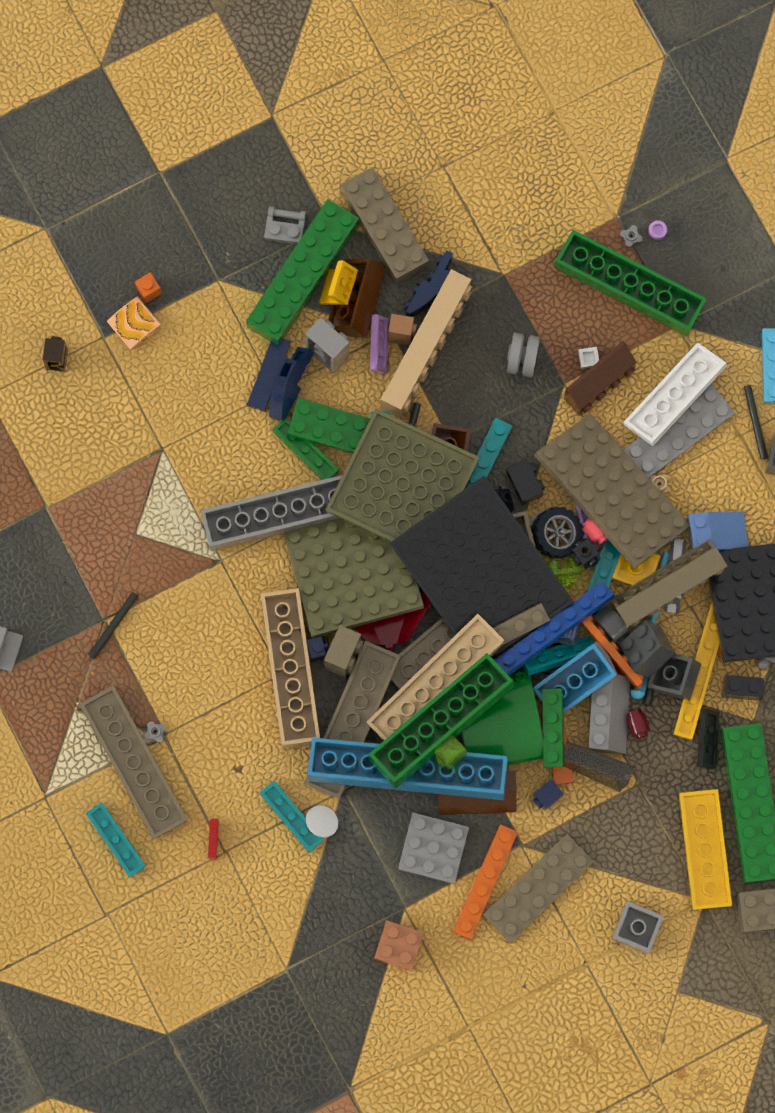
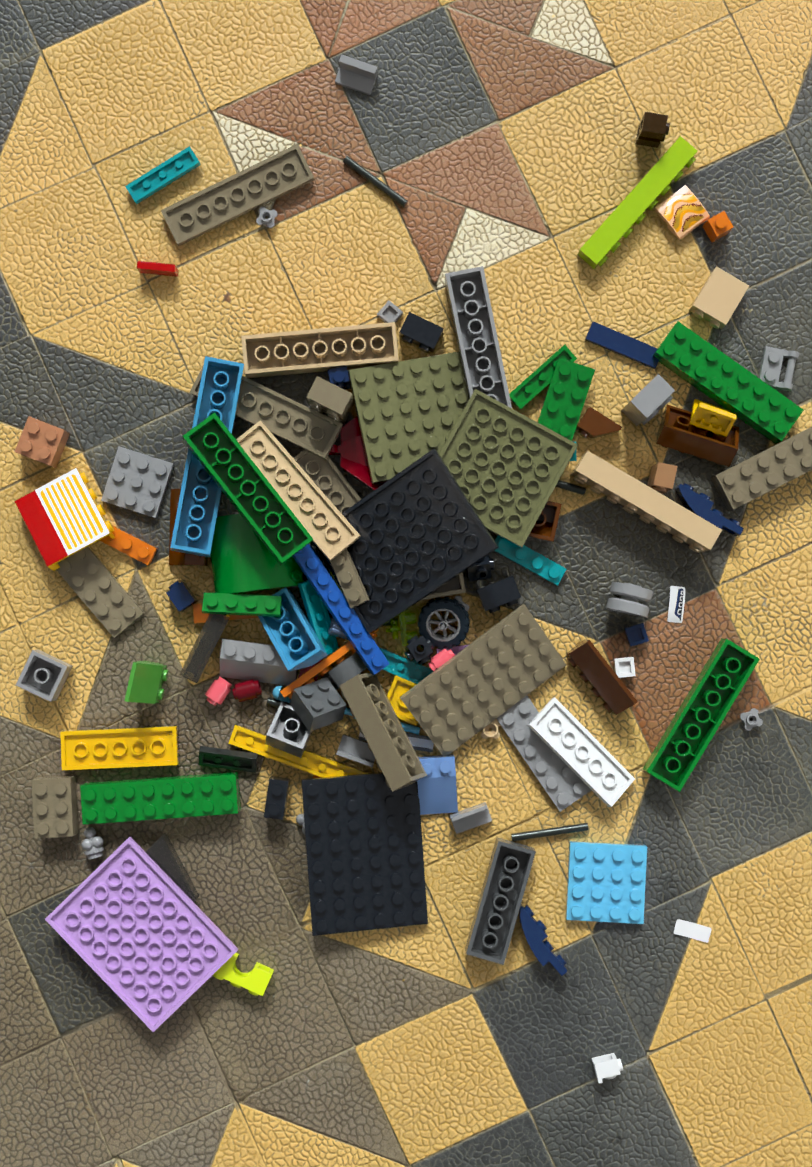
camera: 90 degrees right, 10 degrees up
(127, 366) = (637, 202): none -> lime brick
(219, 284) = (718, 298): none -> tan brick
(248, 603) = (389, 313): none -> light grey tile
(267, 570) = (421, 333): none -> black brick
(285, 386) = (606, 358): dark blue slope -> none
(290, 816) = (175, 345): teal plate -> none
(322, 821) = (169, 375): white sticker -> none
(351, 396) = (596, 425): none -> reddish brown slope
(379, 344) = (647, 455): lavender tile -> none
(450, 753) = (214, 496): clear neon green brick -> none
(476, 915) = (64, 517): none -> panel
(522, 311) = (676, 604): none -> white sticker
(556, 348) = (636, 634): none -> dark blue plate
(637, 822) = (146, 682): none -> bright green slope
(640, 753) = (218, 691): none -> coral brick
(657, 230) = (756, 747): lavender tile -> none
(689, 612) = (355, 750): none -> light grey panel
(747, 498) = (470, 817): none -> light grey panel

